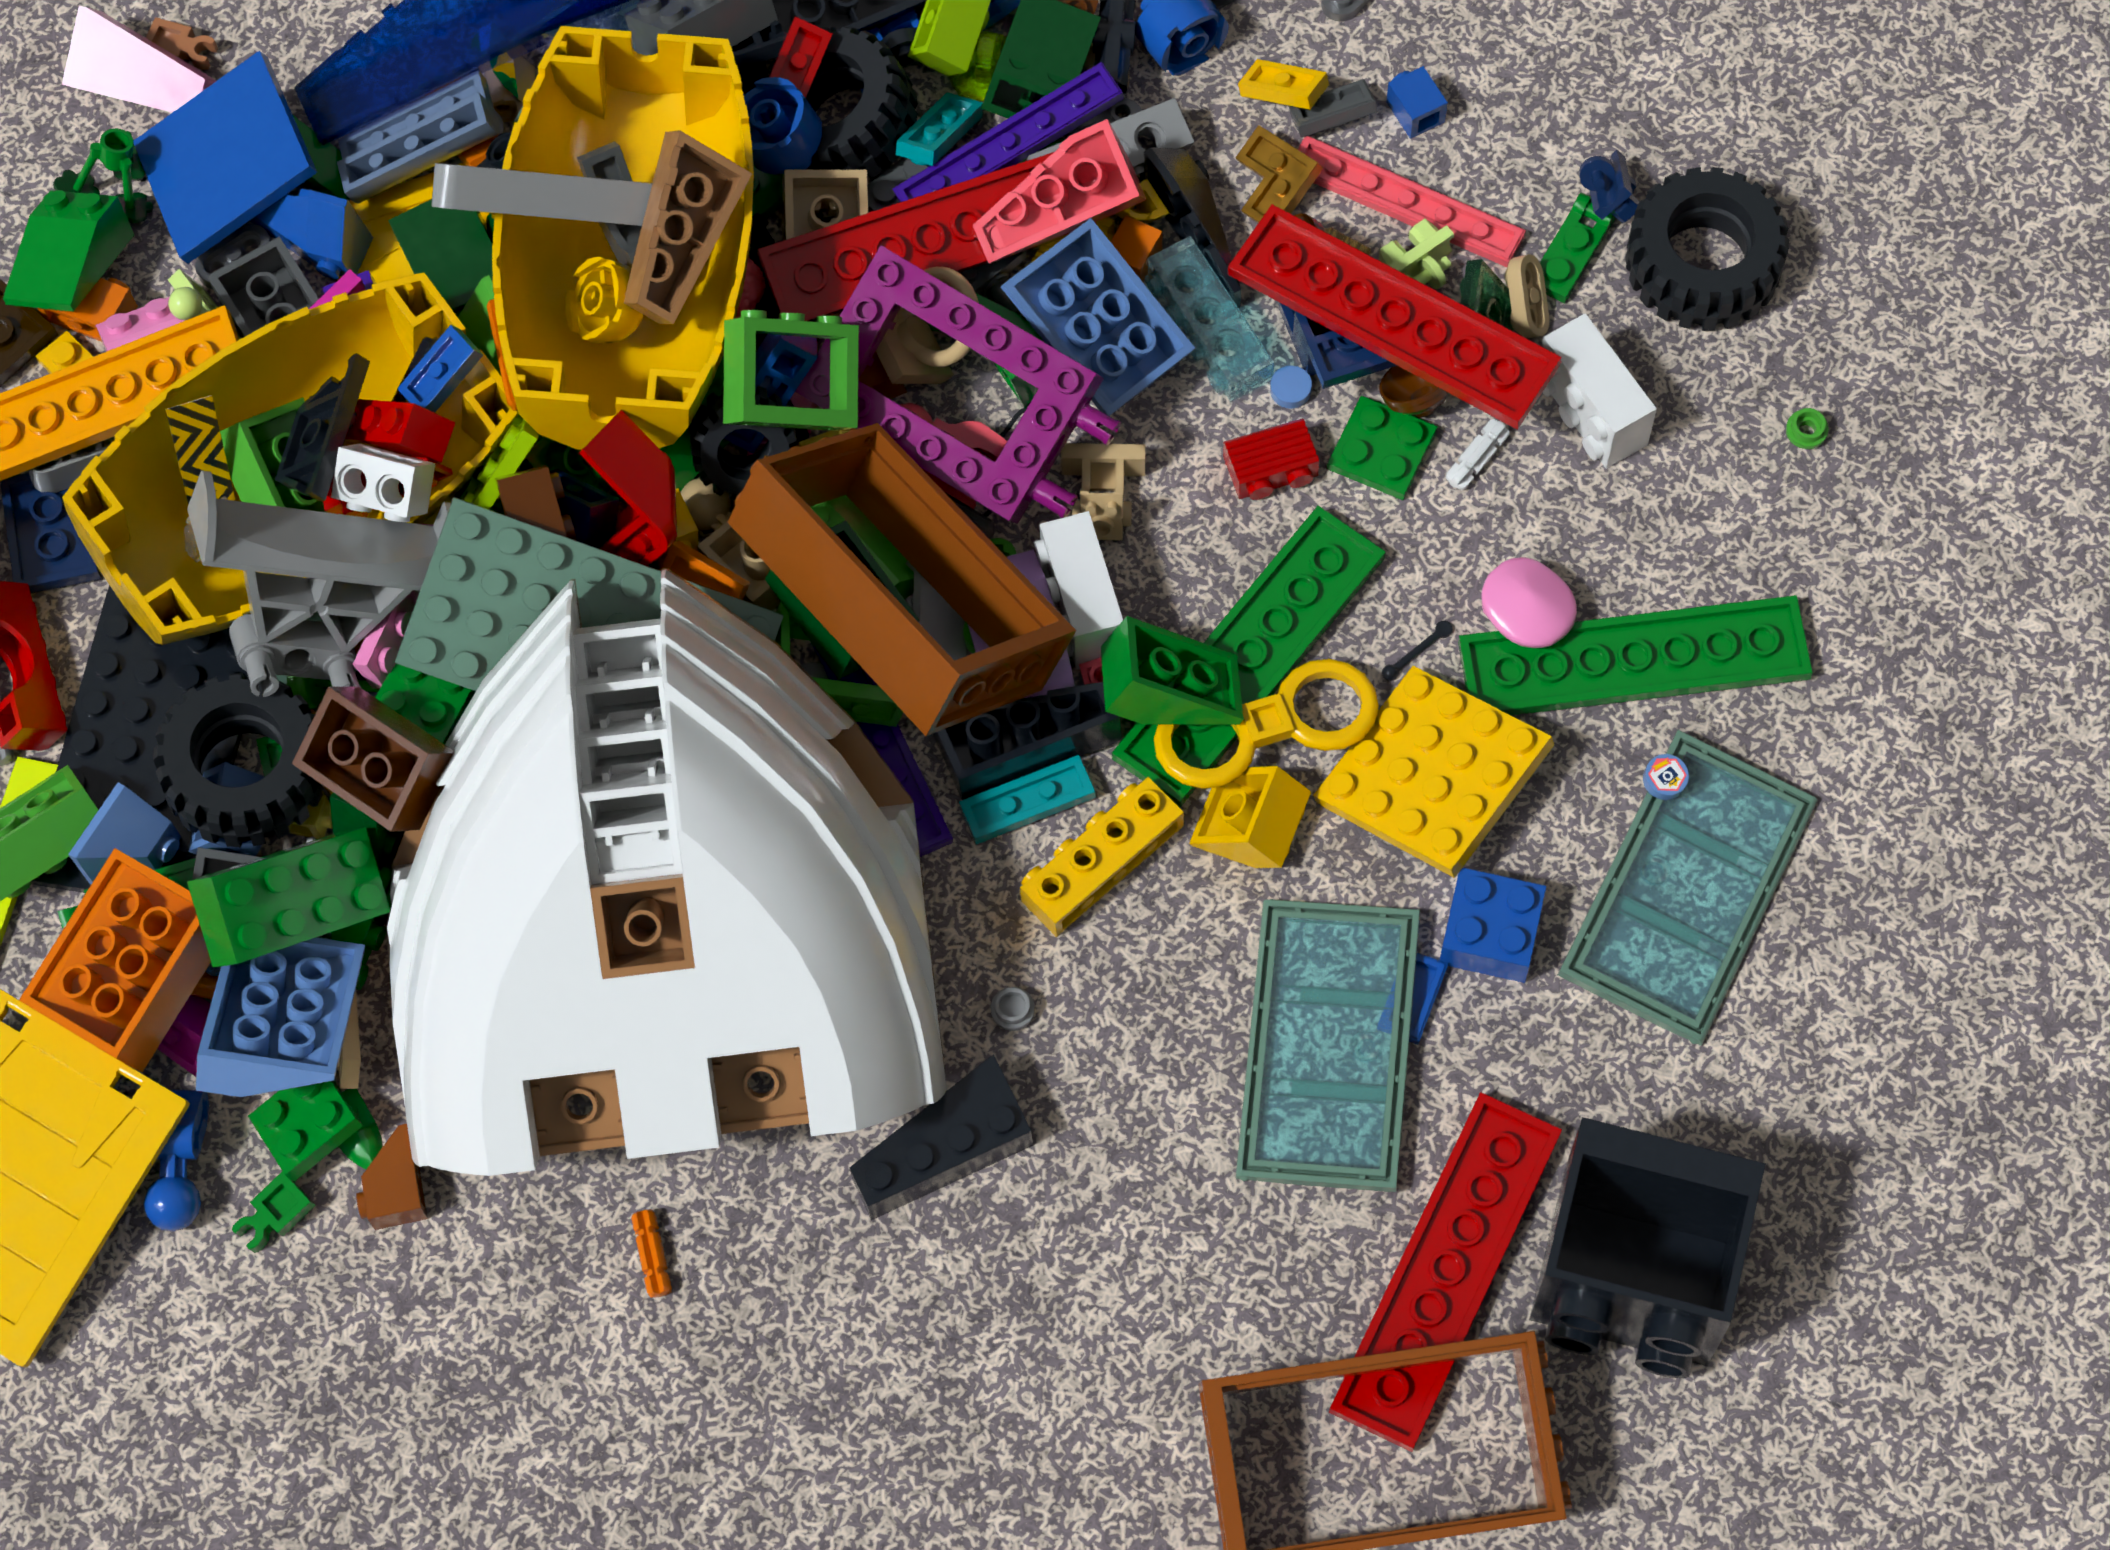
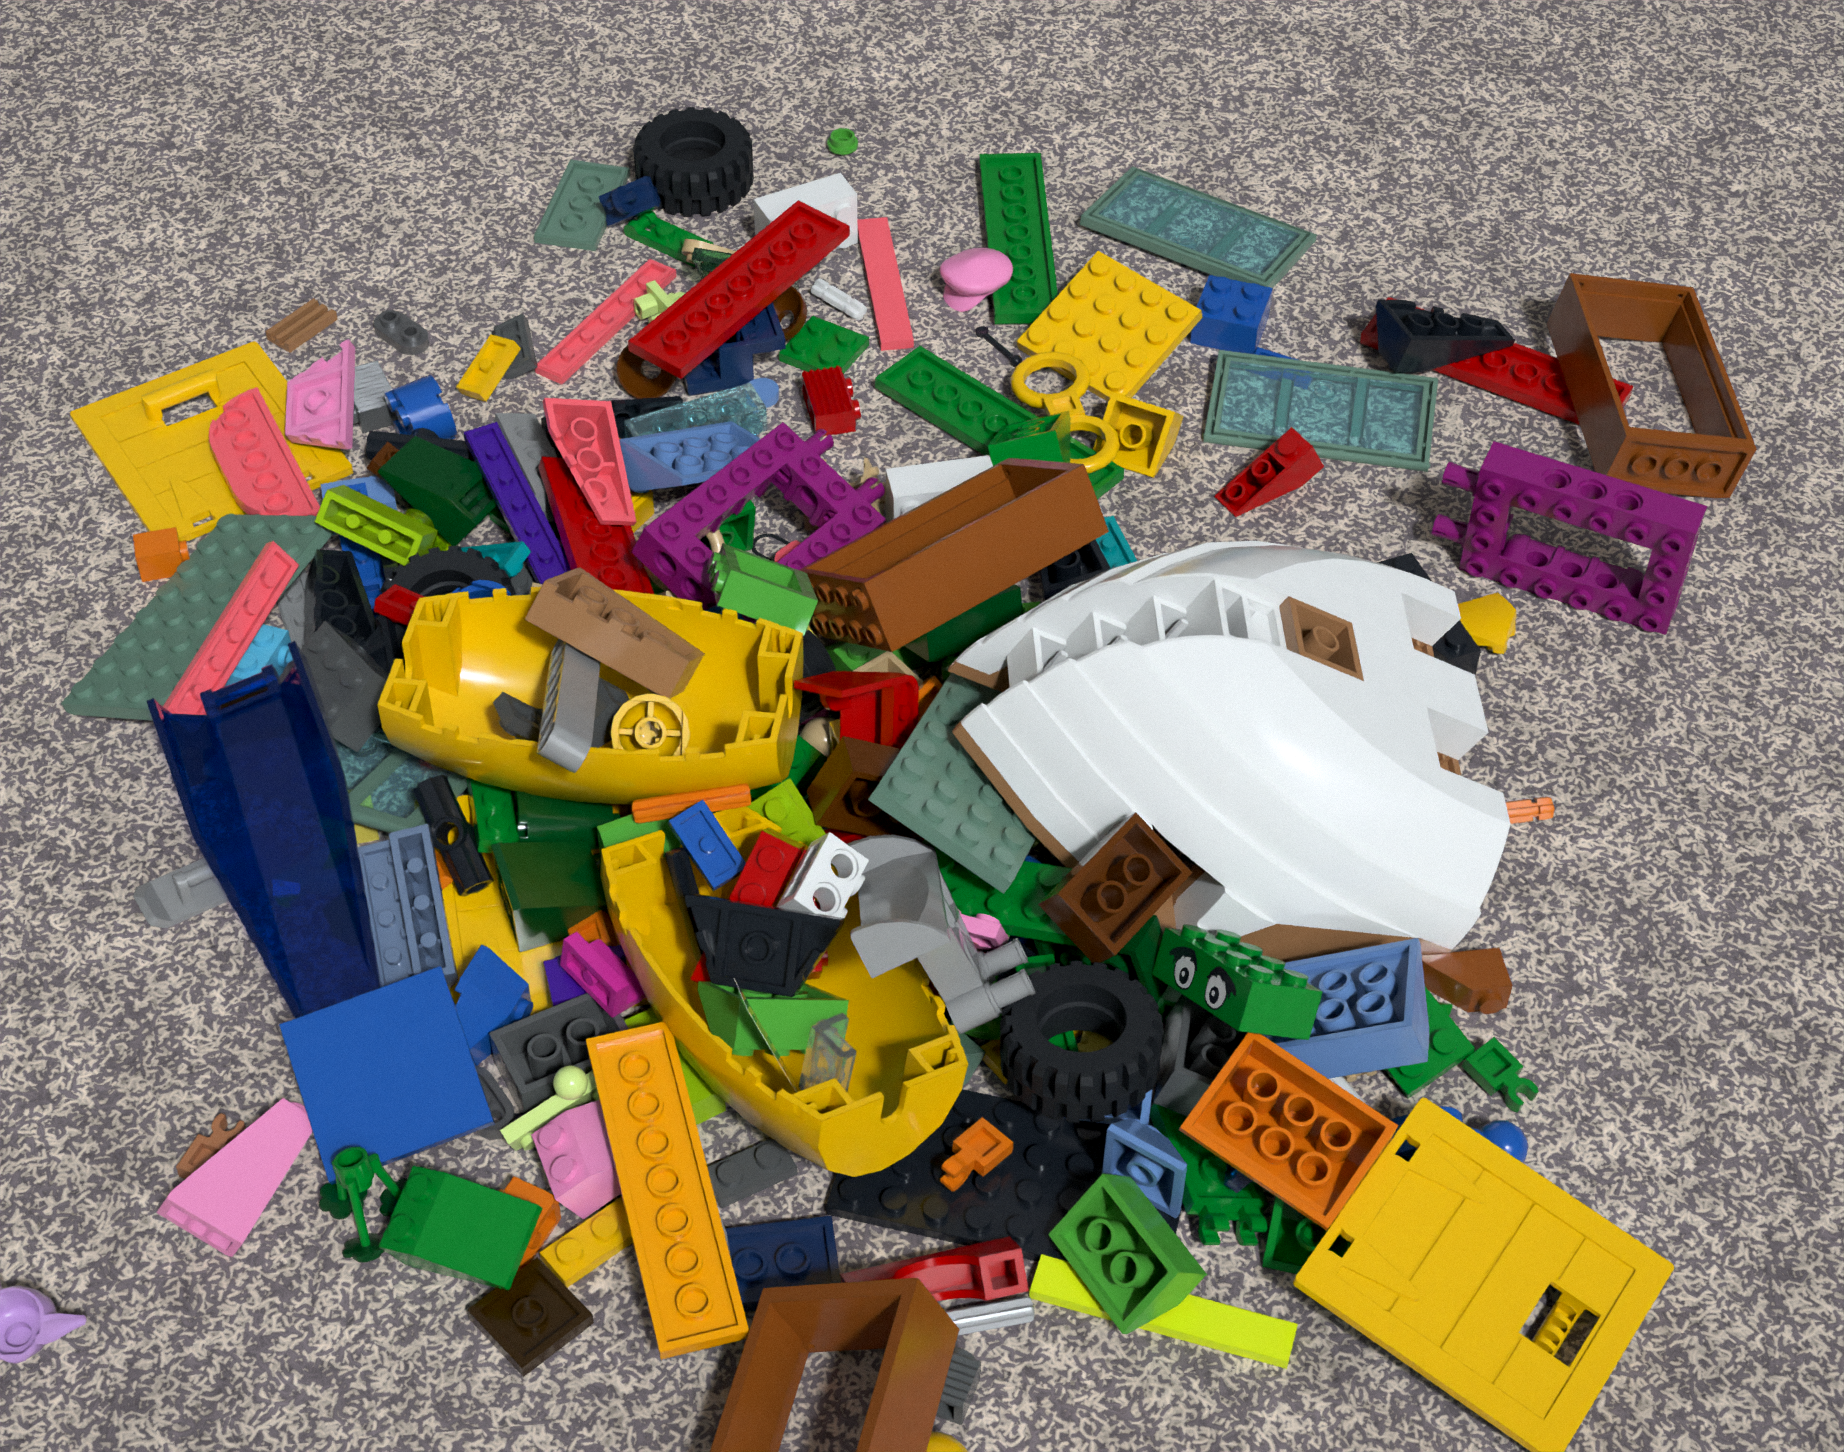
camera: 90 degrees left, 20 degrees down
(153, 690) = (978, 1149): none -> orange plate
(955, 1226) = (1489, 621): none -> yellow slope
(1055, 1265) = (1582, 499): none -> magenta brick
(1101, 855) = (1161, 508): yellow brick -> none
(1191, 979) = (1276, 472): none -> red slope
(1284, 171) = (574, 370): pearl gold plate -> none
(1416, 101) = (524, 297): blue brick -> none
(1461, 1173) = (1431, 339): none -> black wedge
(1522, 505) = (884, 284): none -> coral tile
(1646, 1247) = (1497, 232): black piece -> none
(1650, 137) = (575, 212): none -> sand green tile
(1665, 777) = (1121, 219): tile -> none

